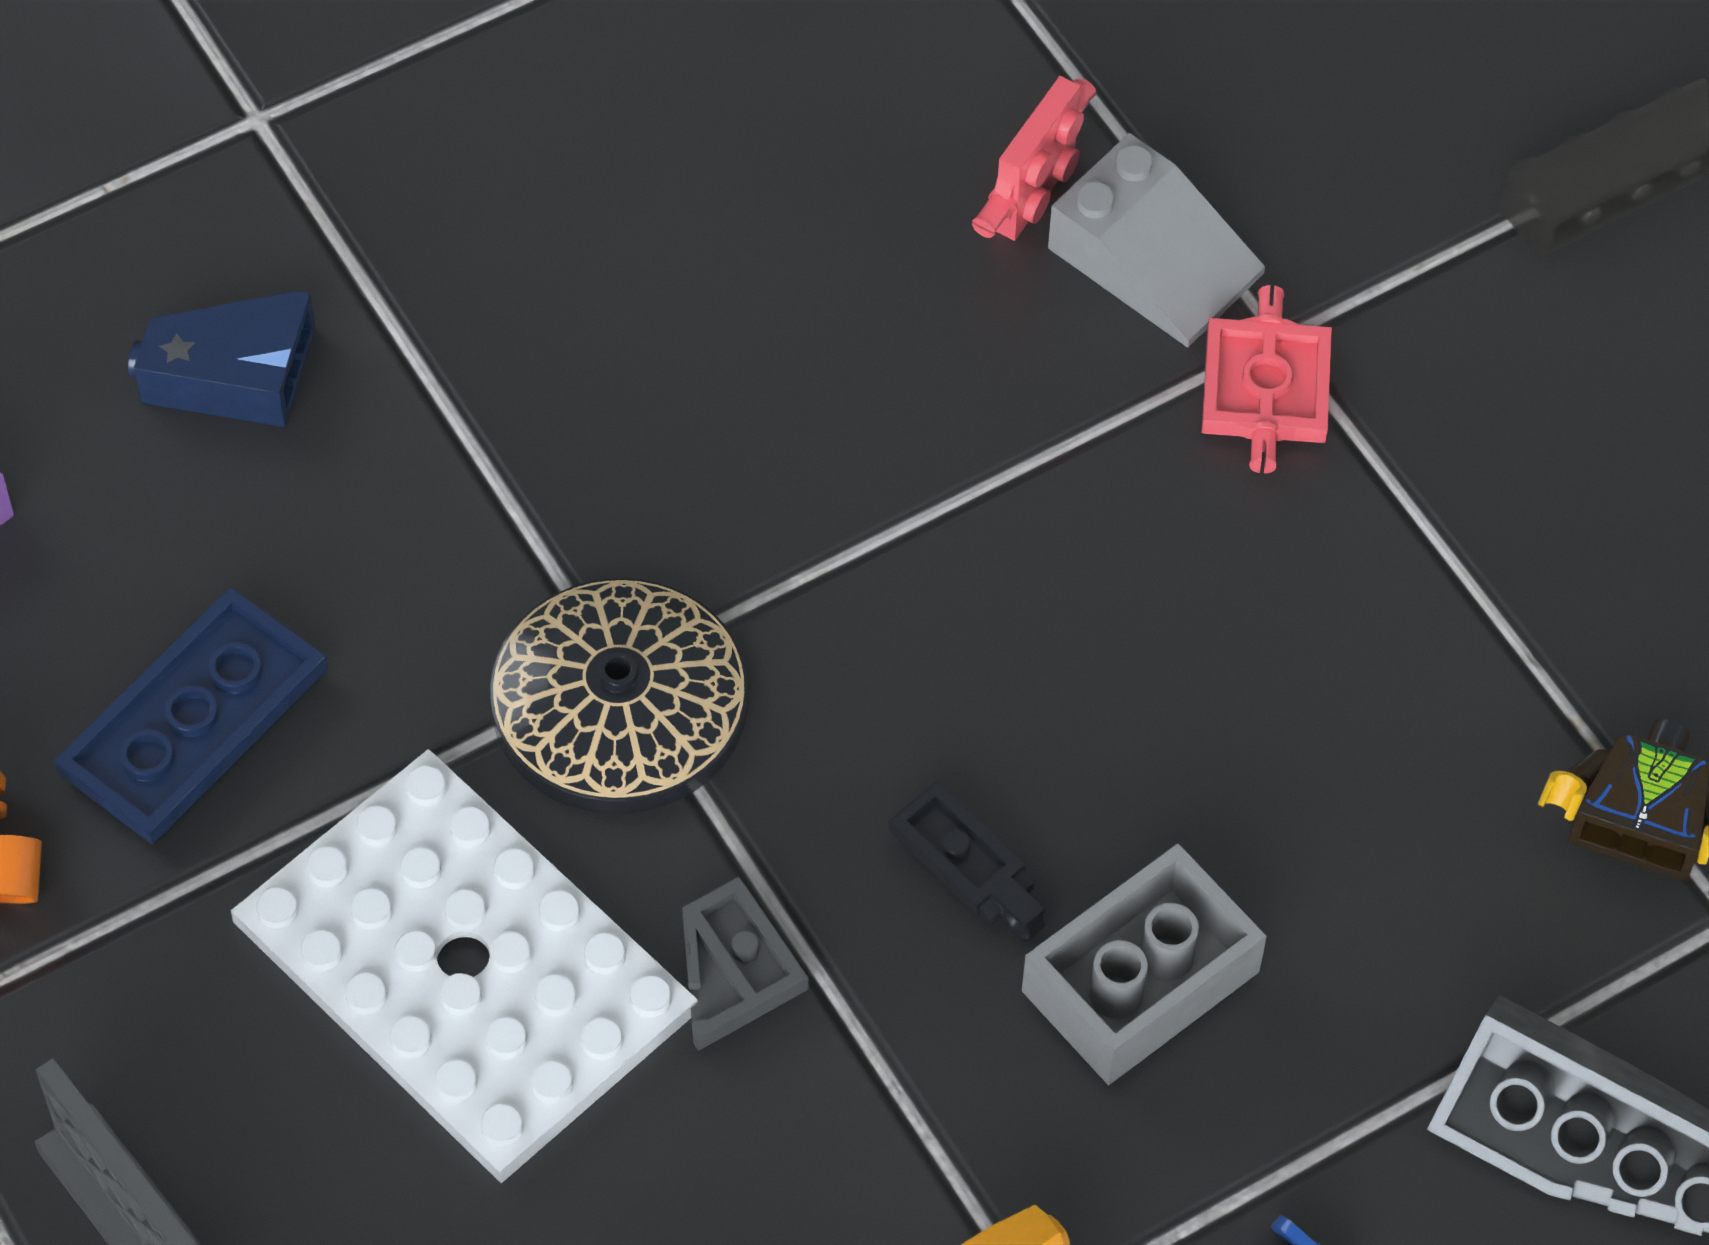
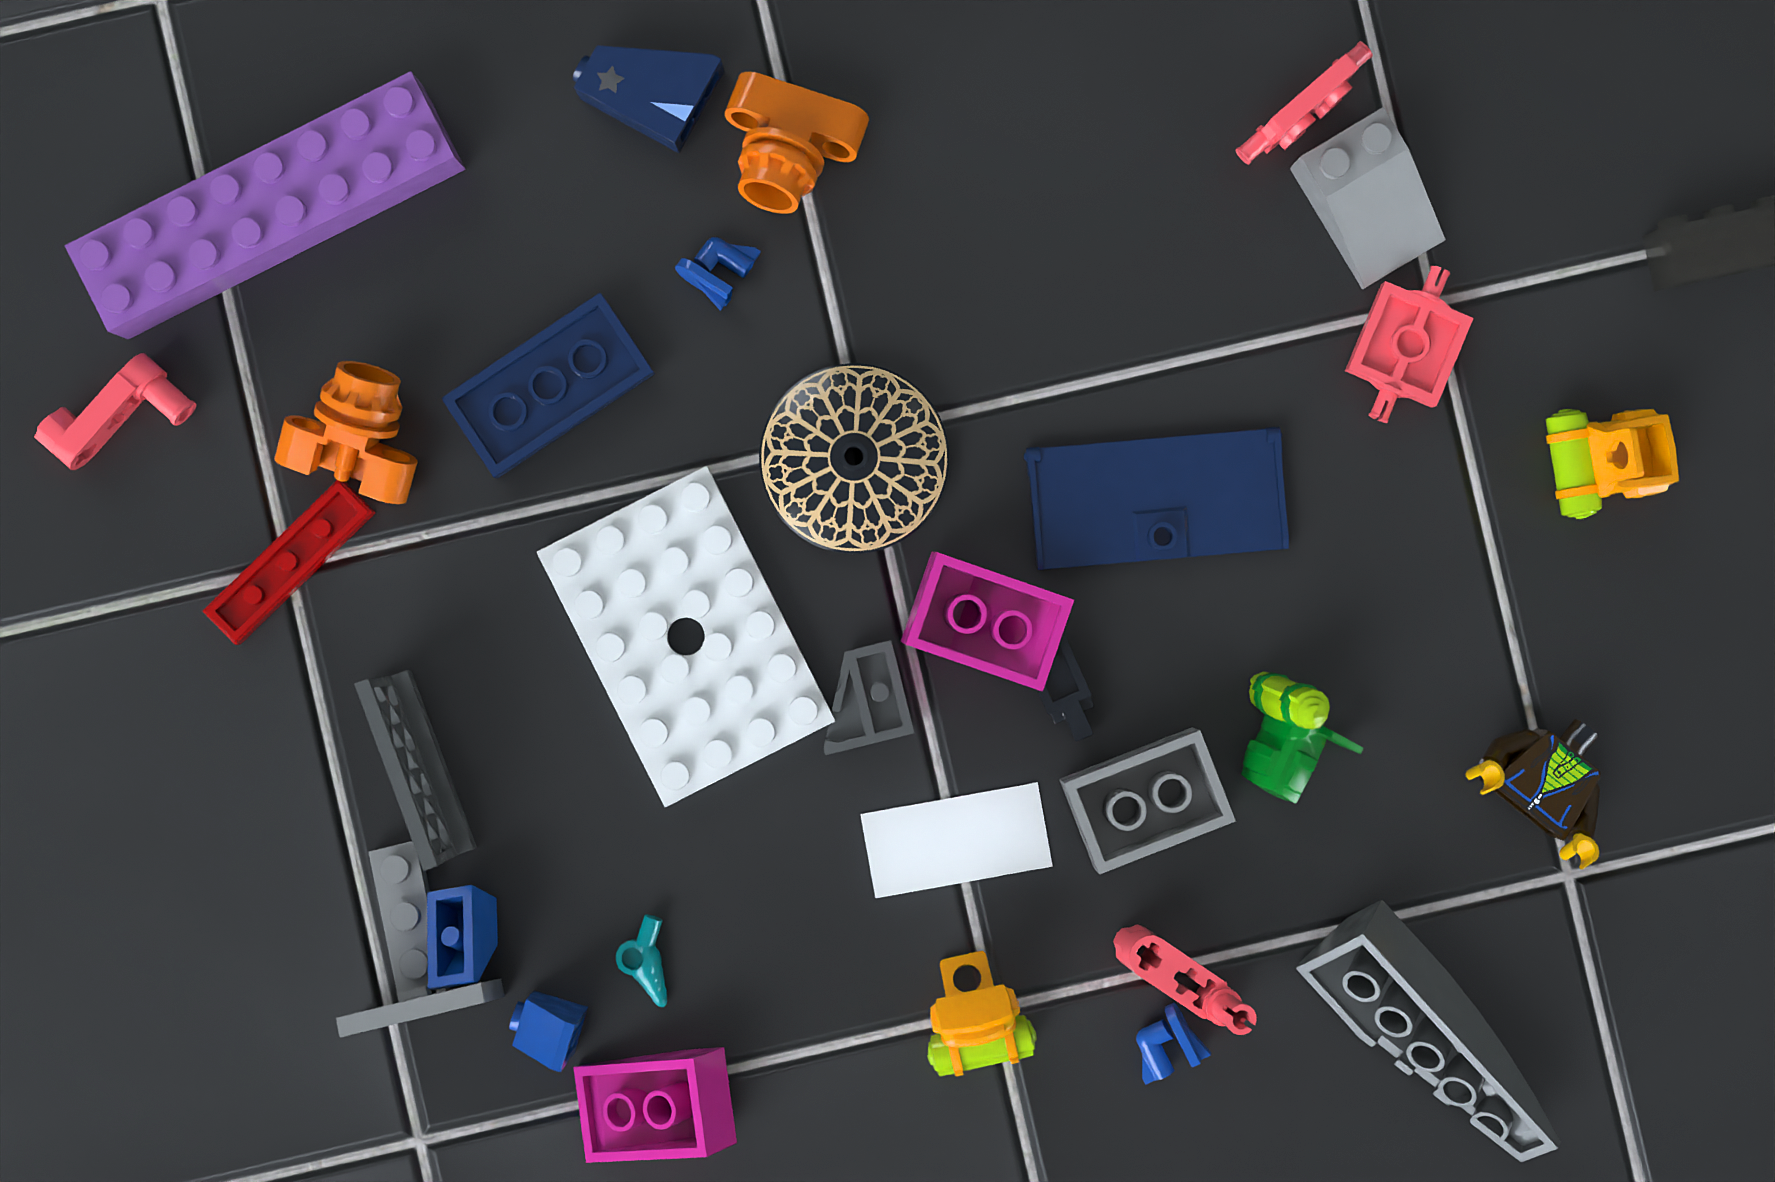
camera: 15 degrees right, 30 degrees up
(371, 532) = (734, 257): none -> blue piece
(421, 359) = (788, 138): none -> orange beam
(852, 811) = (987, 621): none -> dark pink slope
(911, 1111) = (956, 840): none -> white sticker
(1023, 635) = (1158, 498): none -> dark blue door
(1238, 1158) = (1161, 963): none -> coral beam
(1298, 829) = (1289, 735): none -> green piece
(1559, 424) = (1596, 459): none -> light orange piece

